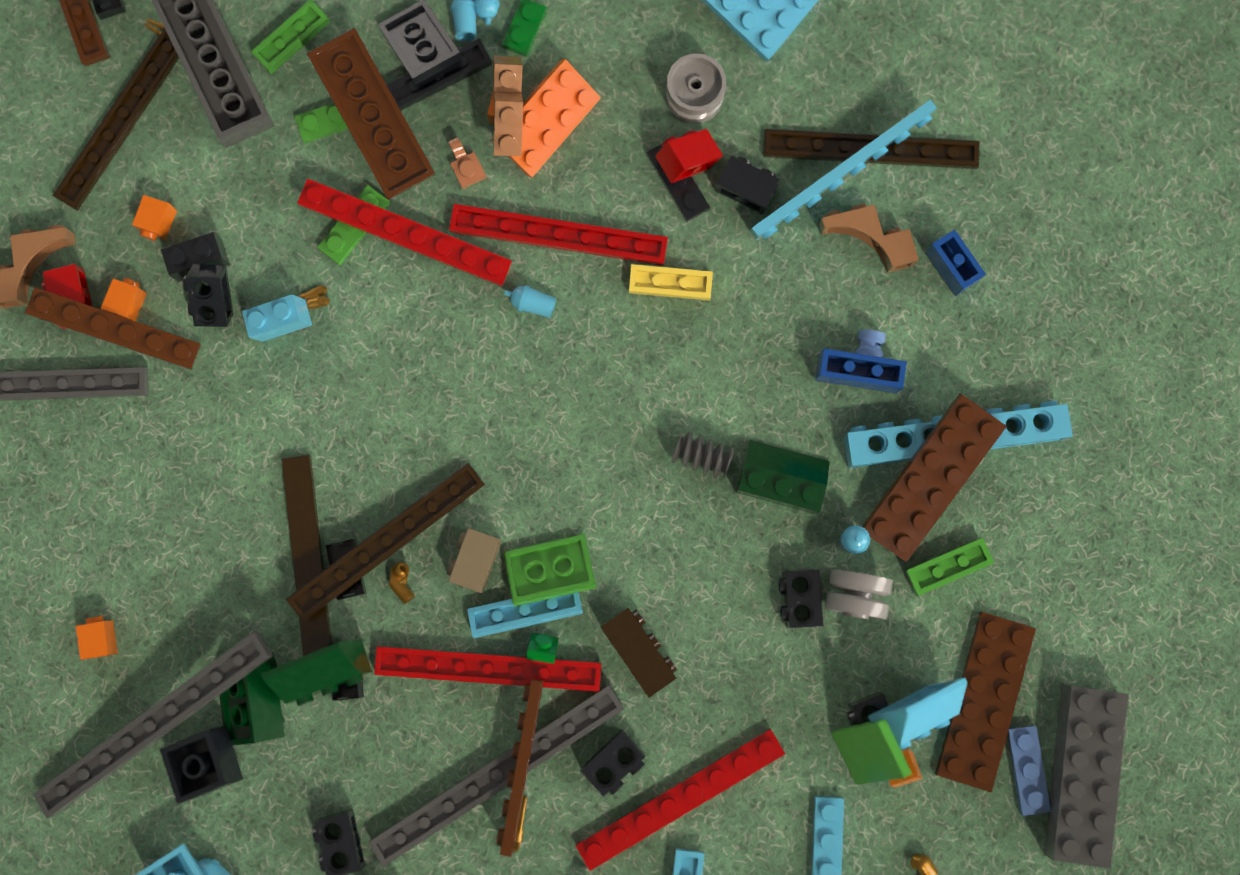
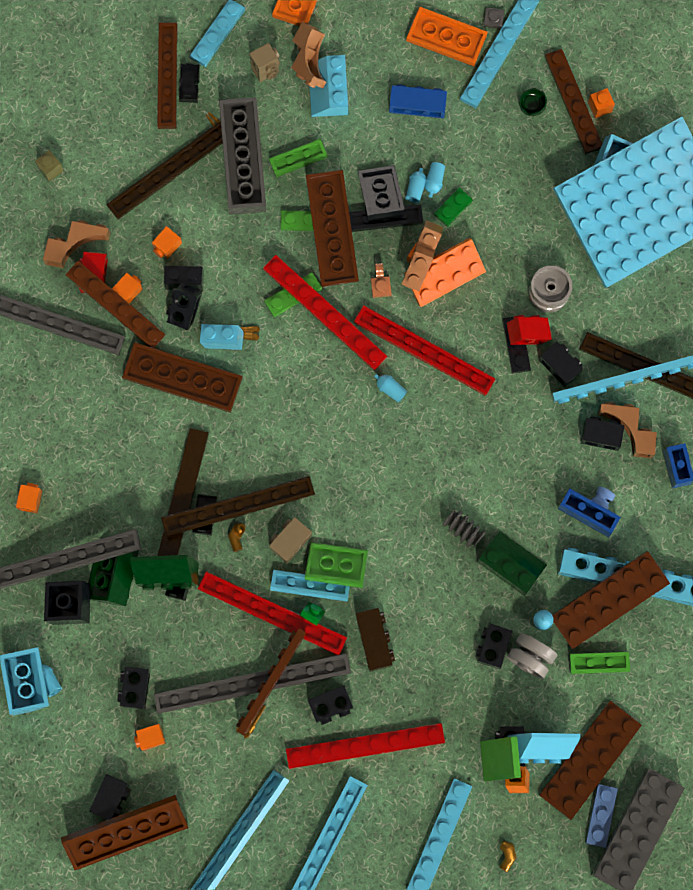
camera: 20 degrees right, 5 degrees down
(245, 393) = (182, 377): none -> reddish brown plate
(670, 282) = (486, 409): light yellow plate -> none
(837, 257) = (602, 433): none -> black brick

